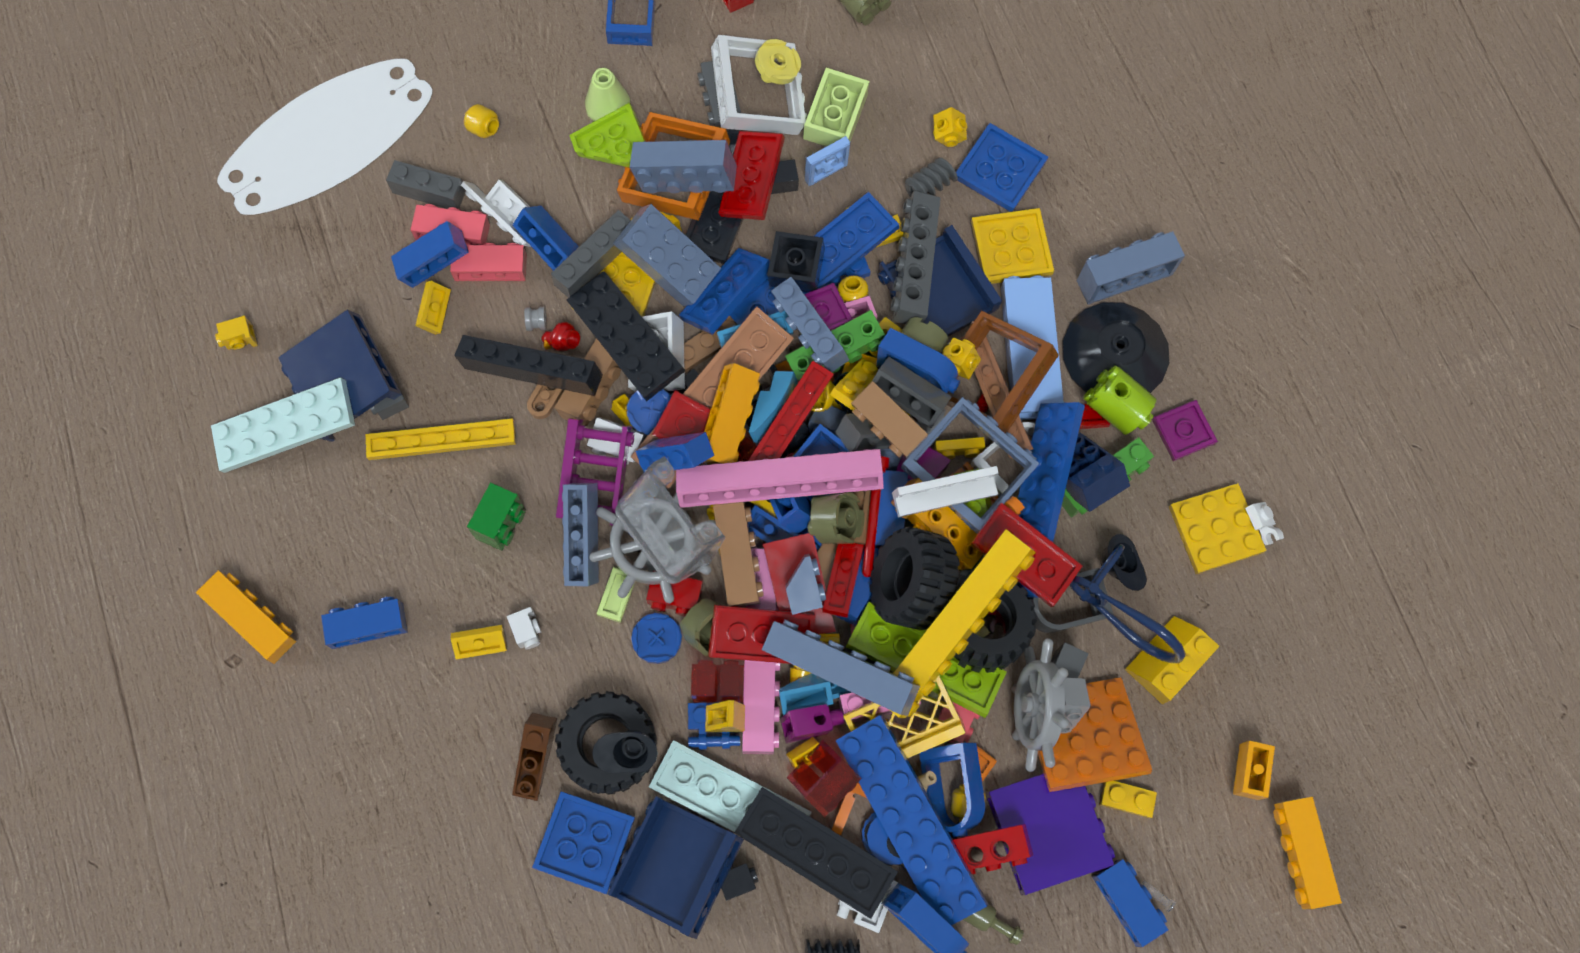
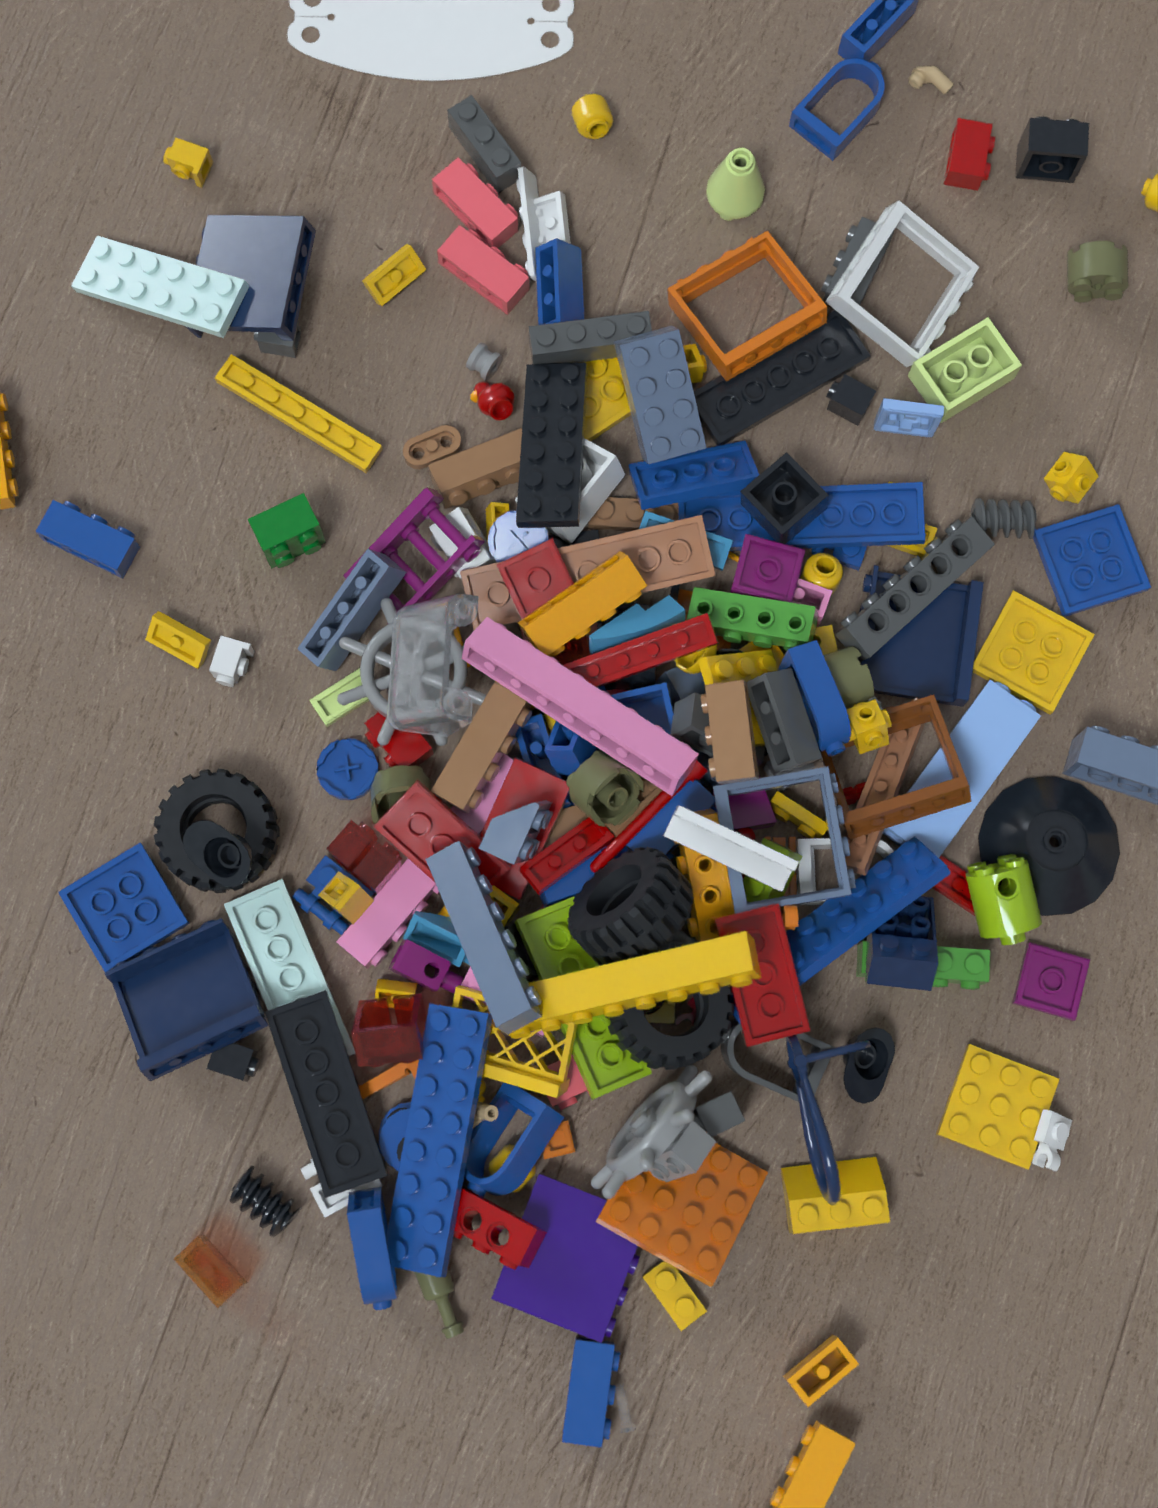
camera: 40 degrees right, 5 degrees up
(429, 254) = (430, 218): blue brick -> none
(529, 365) = (436, 404): black brick -> none
(534, 755) = (143, 788): reddish brown slope -> none
(609, 137) = (707, 232): lime plate -> none
(680, 451) = (499, 601): blue brick -> none
(683, 166) = (746, 314): sand blue brick -> none
(757, 163) = (817, 374): red tile -> none
(769, 69) = (925, 279): light yellow plate -> none
(809, 324) = (738, 575): sand blue brick -> none

